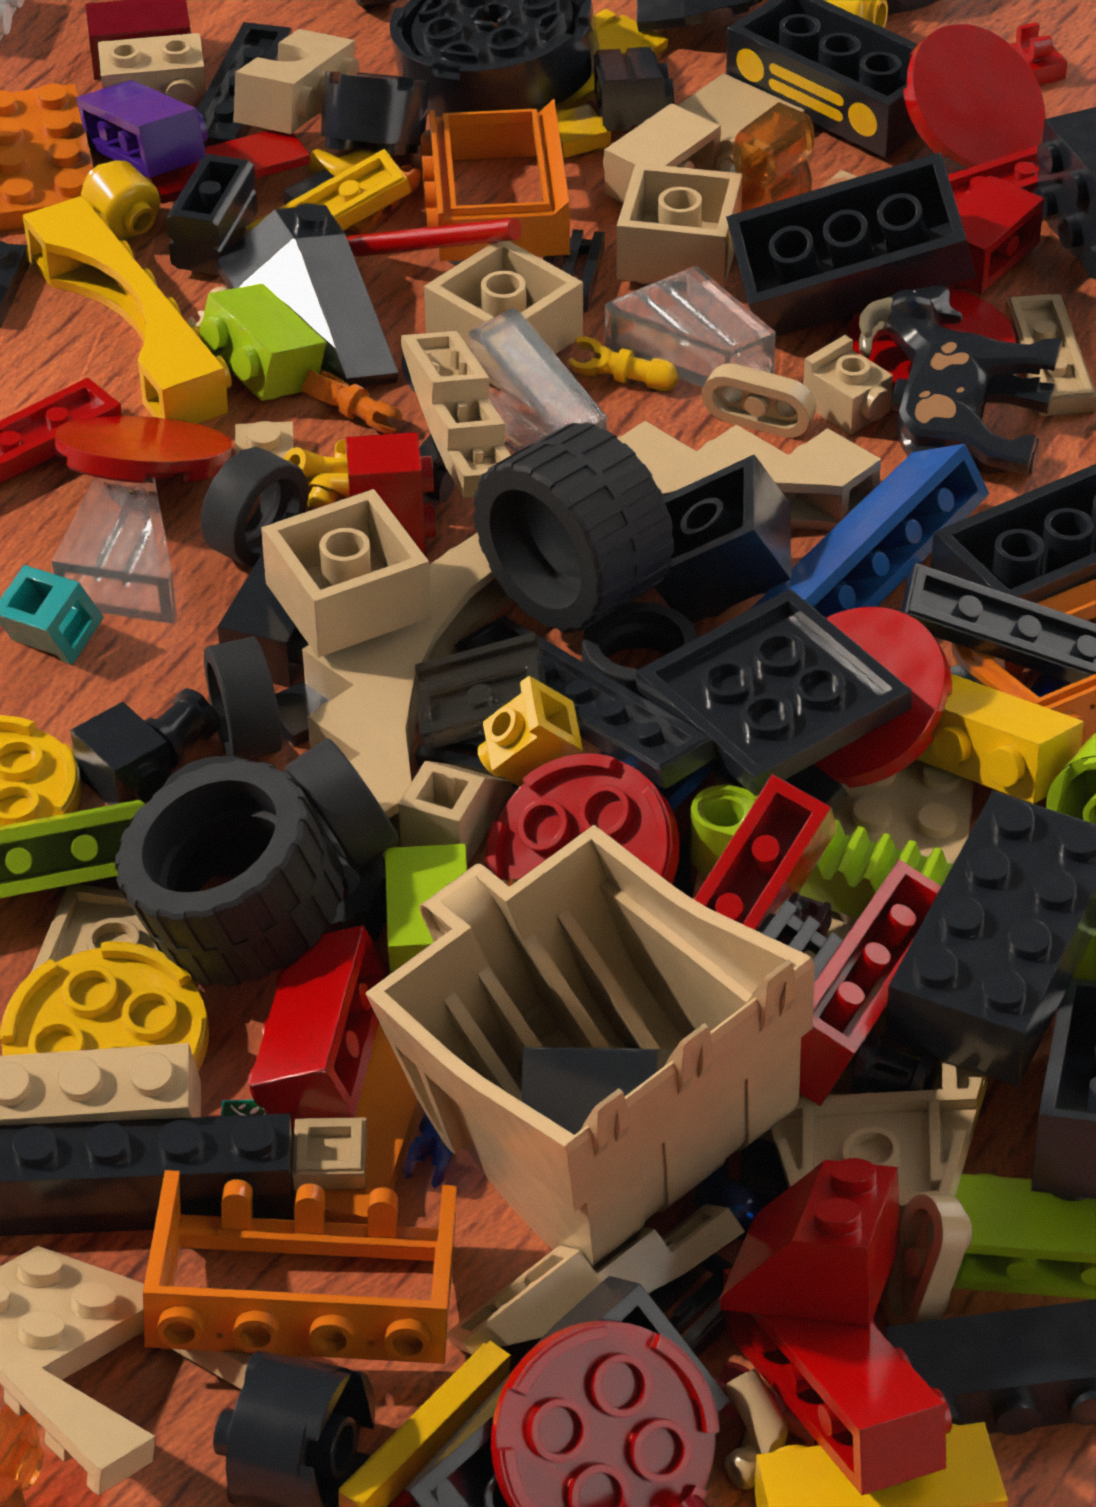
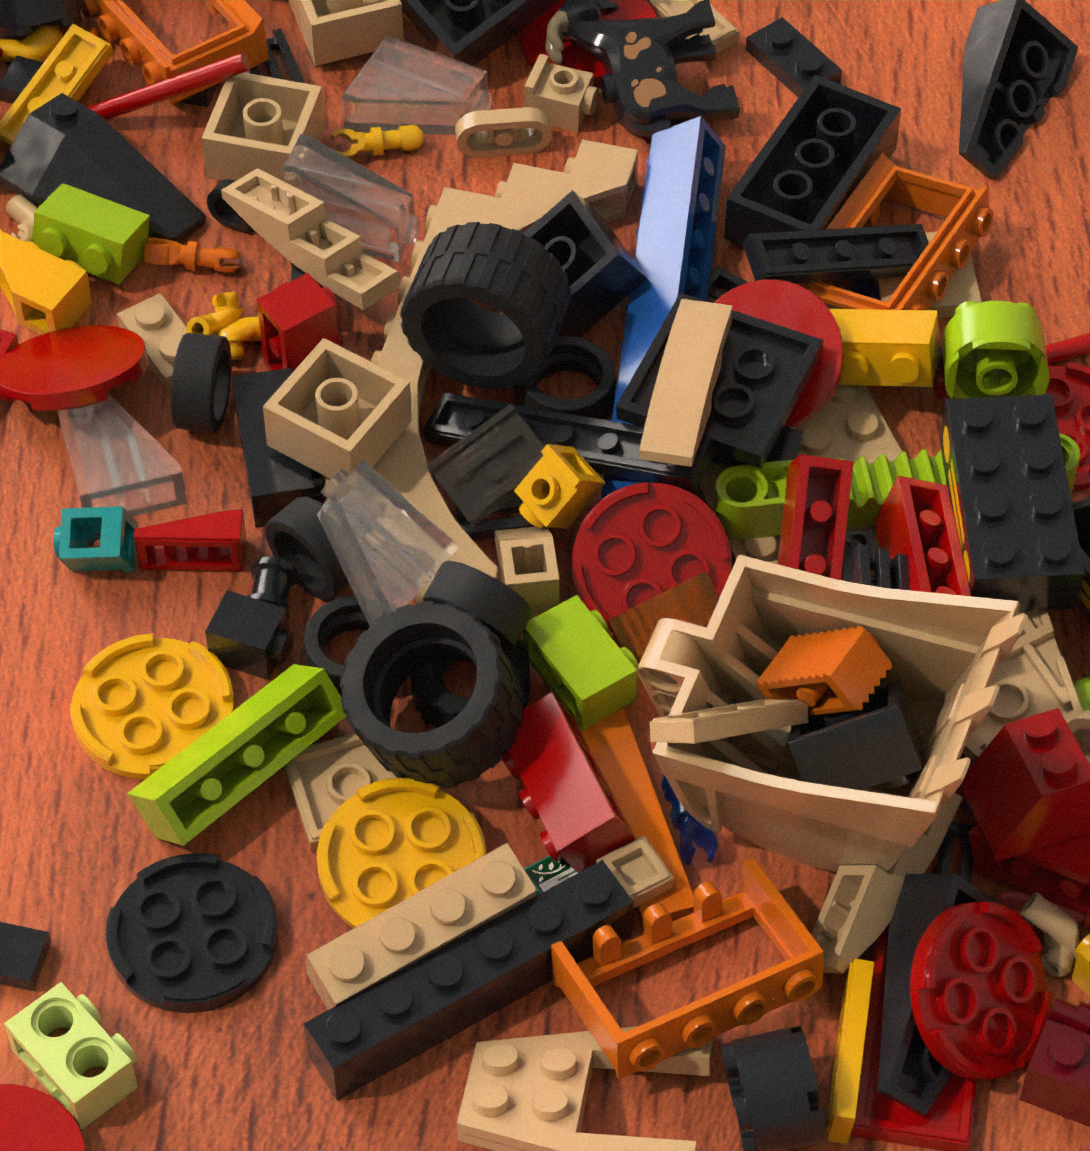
camera: 30 degrees left, 10 degrees up
(158, 660) = (194, 543): none -> red slope
(292, 693) = (381, 540): none -> clear slope
(473, 996) = (728, 721): none -> tan tile
(628, 999) = (827, 670): none -> orange brick
(707, 669) = (685, 383): none -> tan slope

